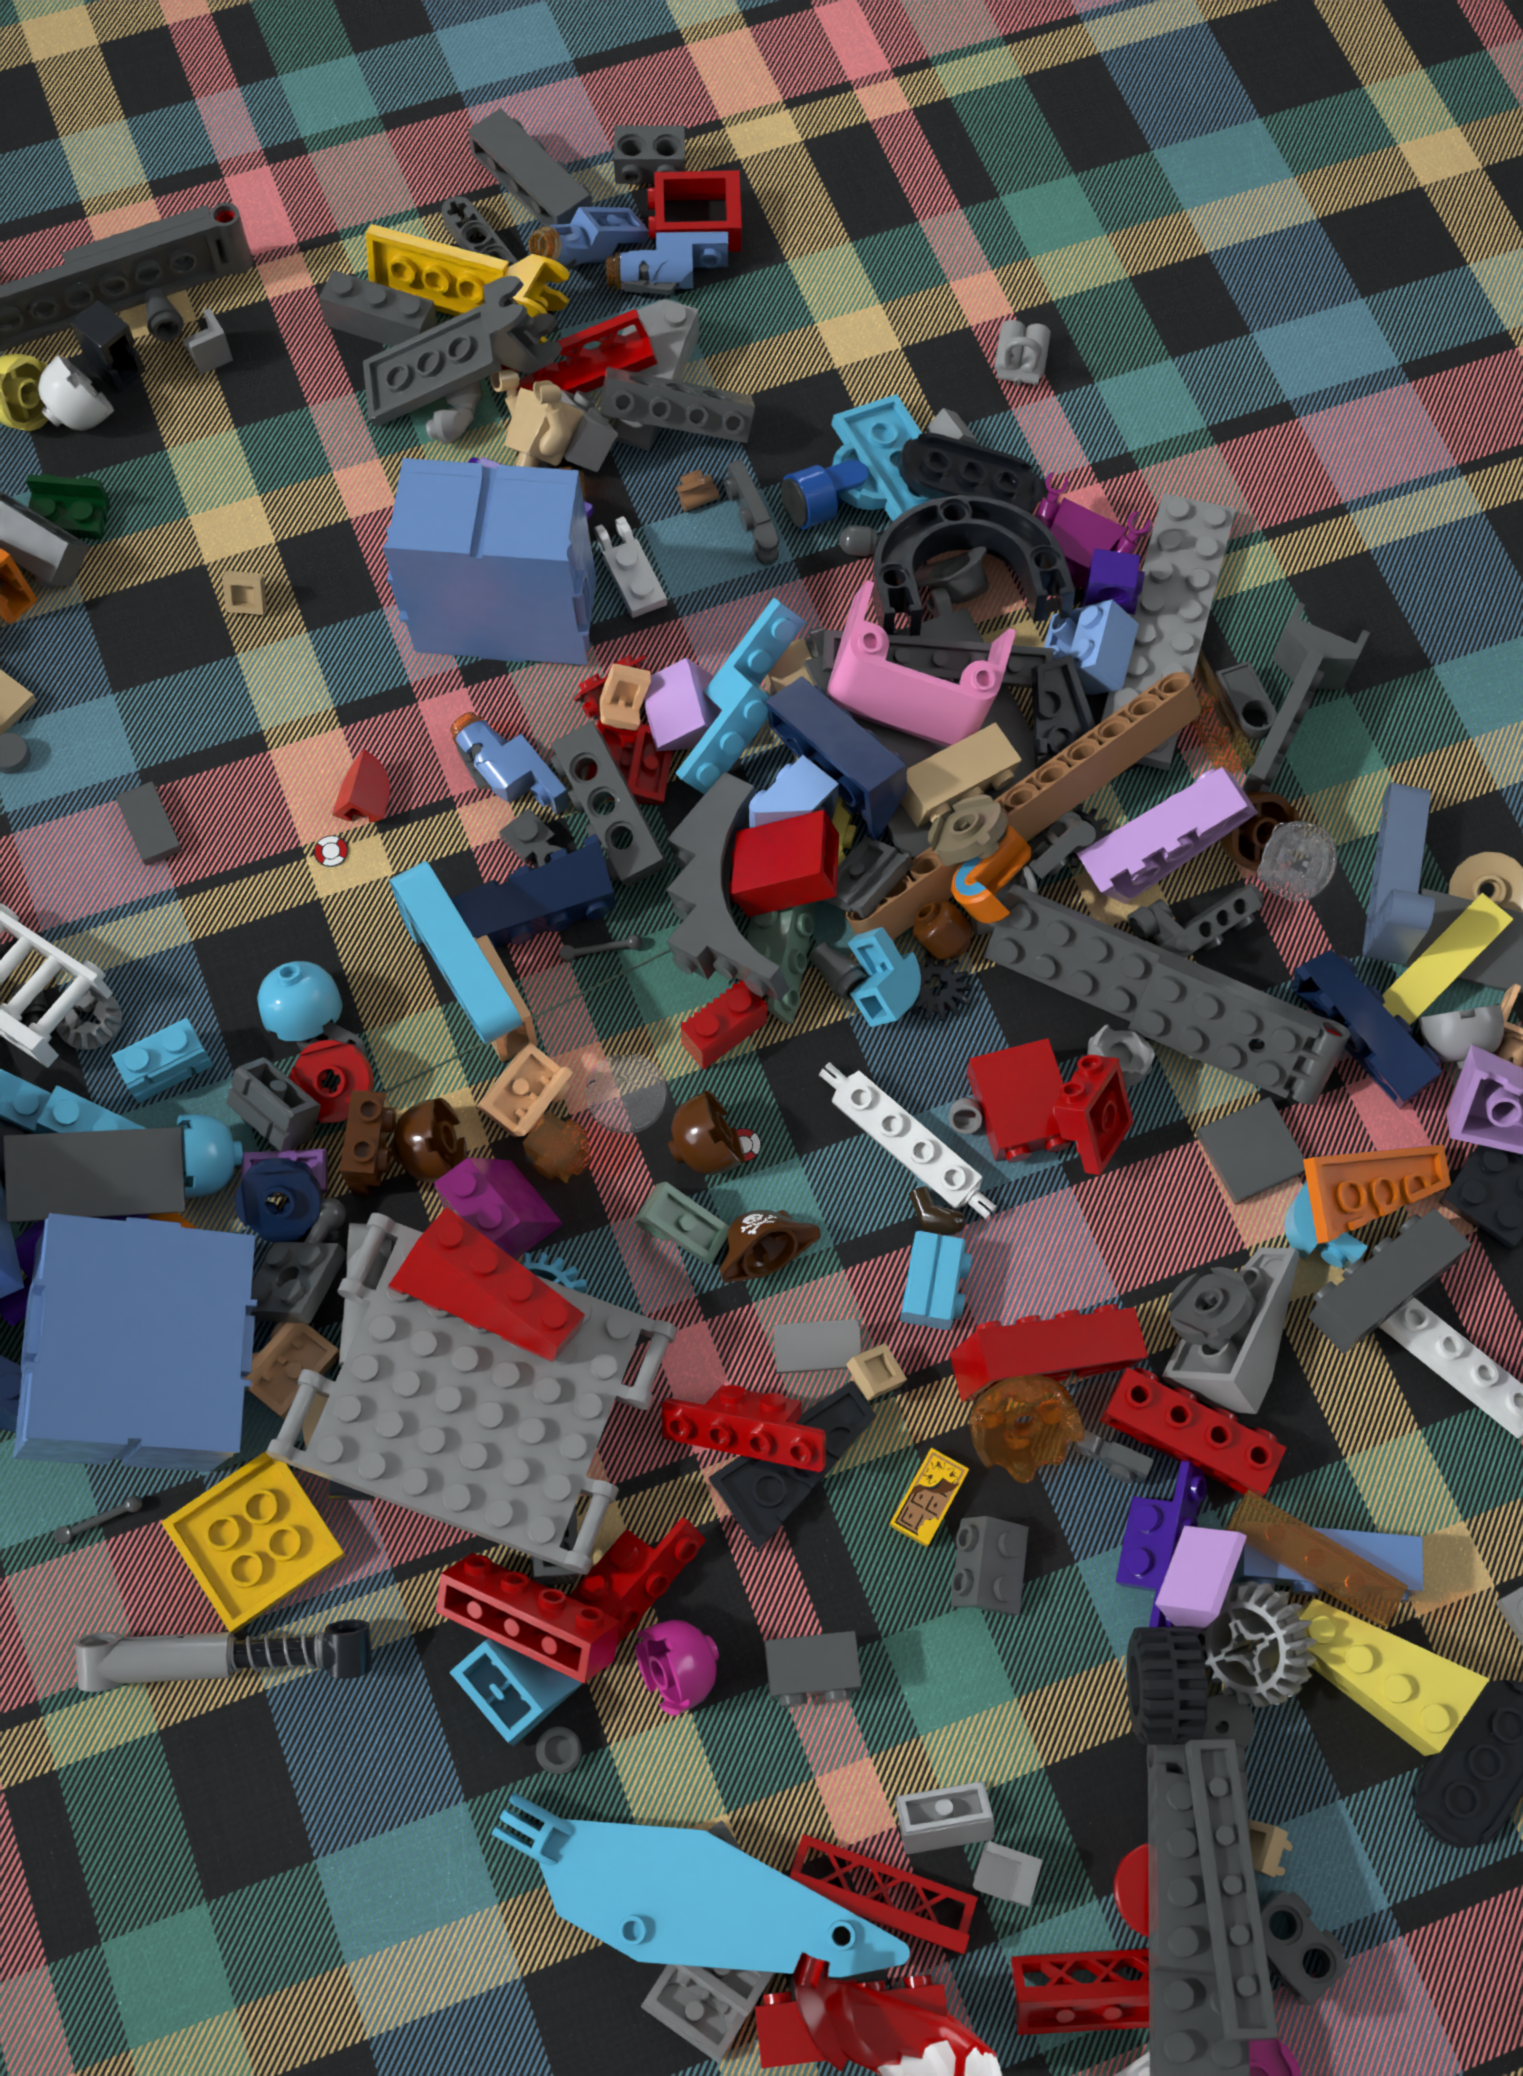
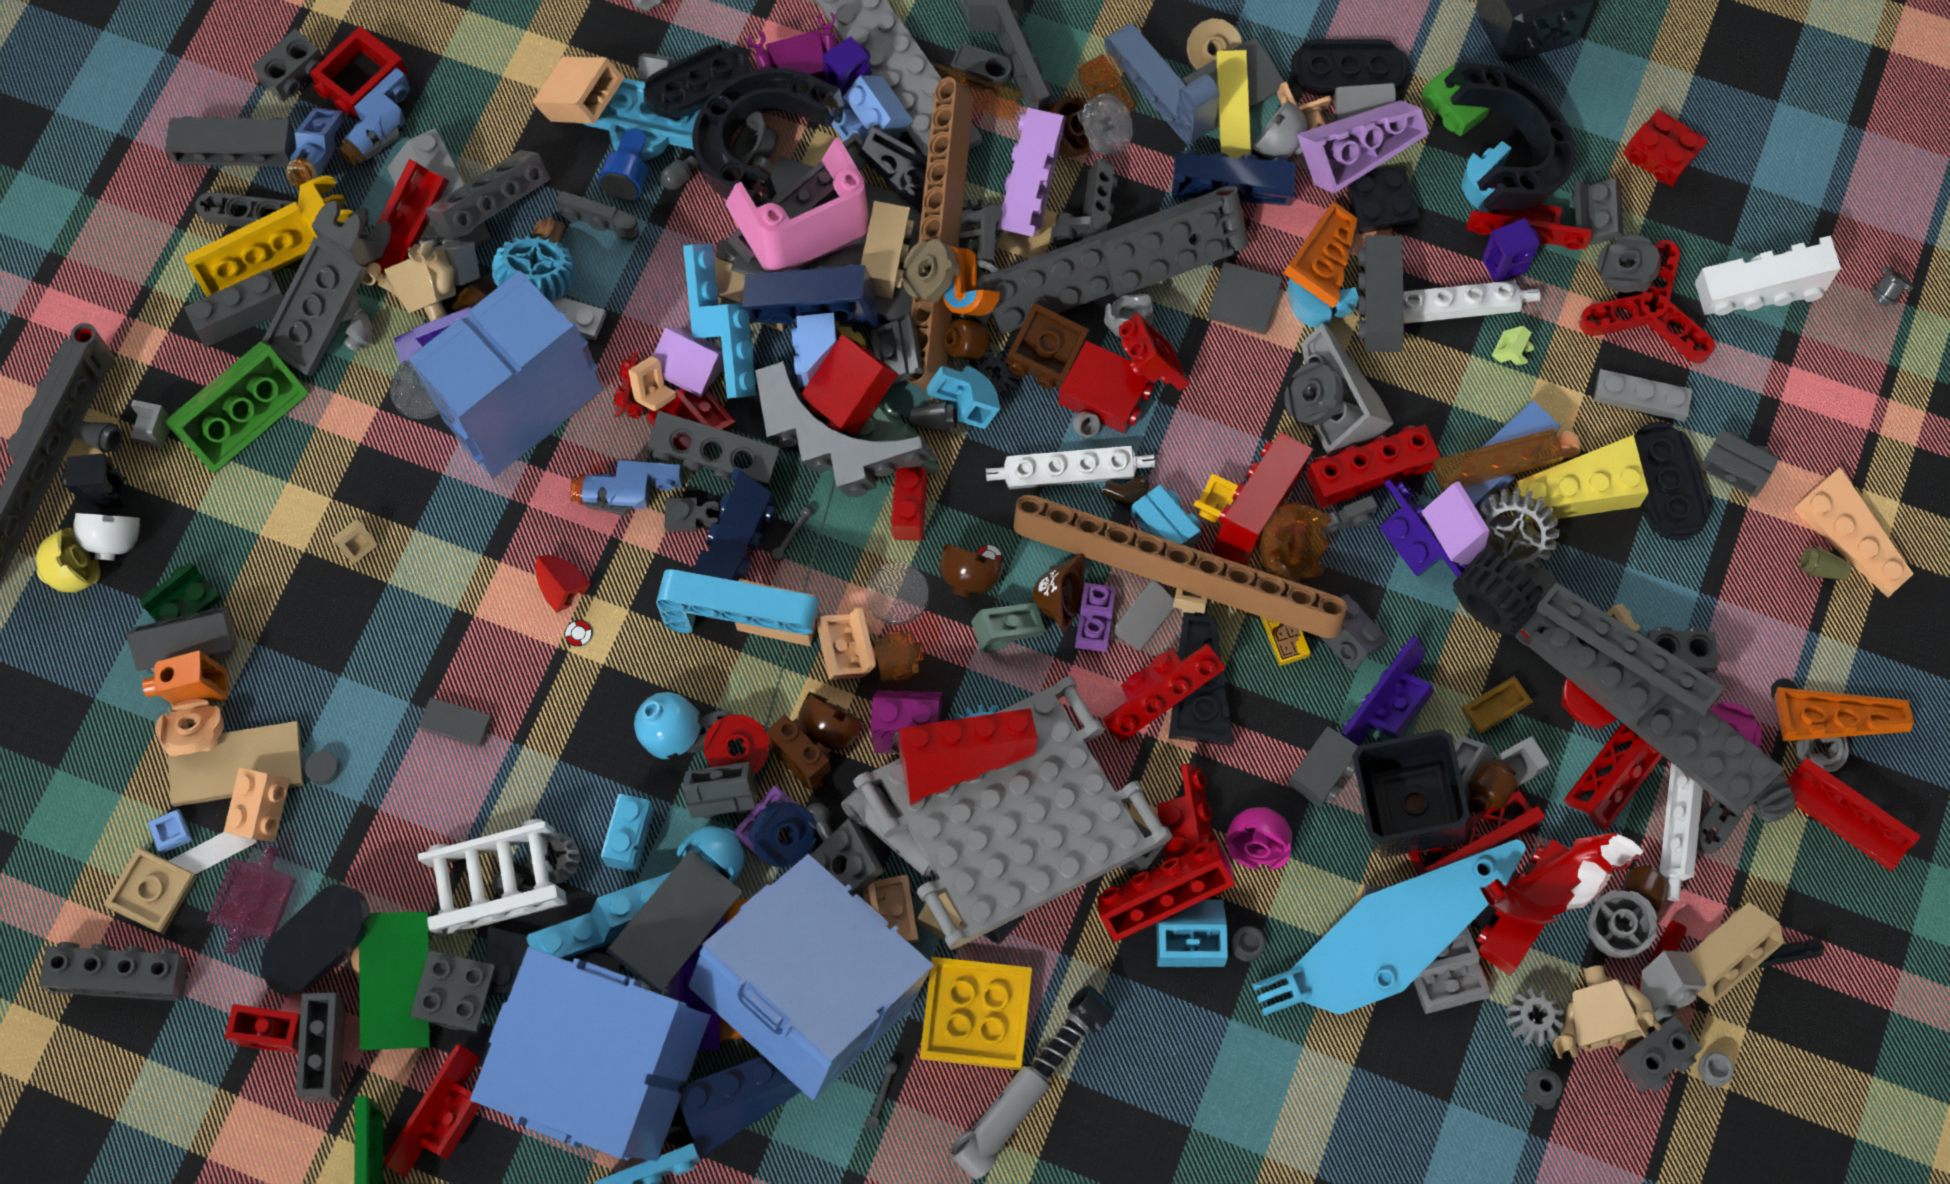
camera: 45 degrees left, 0 degrees up
(285, 393) = (237, 407): none -> bright green slope
(642, 505) = (540, 260): none -> medium azure gear
(772, 1299) = (1095, 617): none -> medium lavender slope
(830, 1752) = (1406, 767): none -> black plate
(855, 387) = (578, 89): none -> light nougat brick
(895, 1340) = (1180, 566): none -> medium nougat beam
(953, 1676) = (1394, 699): none -> dark purple bracket
(953, 1864) = (1492, 785): none -> reddish brown head
(1004, 1304) = (1215, 497): none -> yellow bracket
(1006, 1006) = (1046, 347): none -> reddish brown plate
(1051, 1791) = (1496, 705): none -> pearl gold tile
(1349, 806) = (1099, 70): none -> clear orange slope
(1415, 1617) = (1569, 443): none -> light nougat hinge
(1468, 1462) = (1512, 345): none -> yellowish green tile

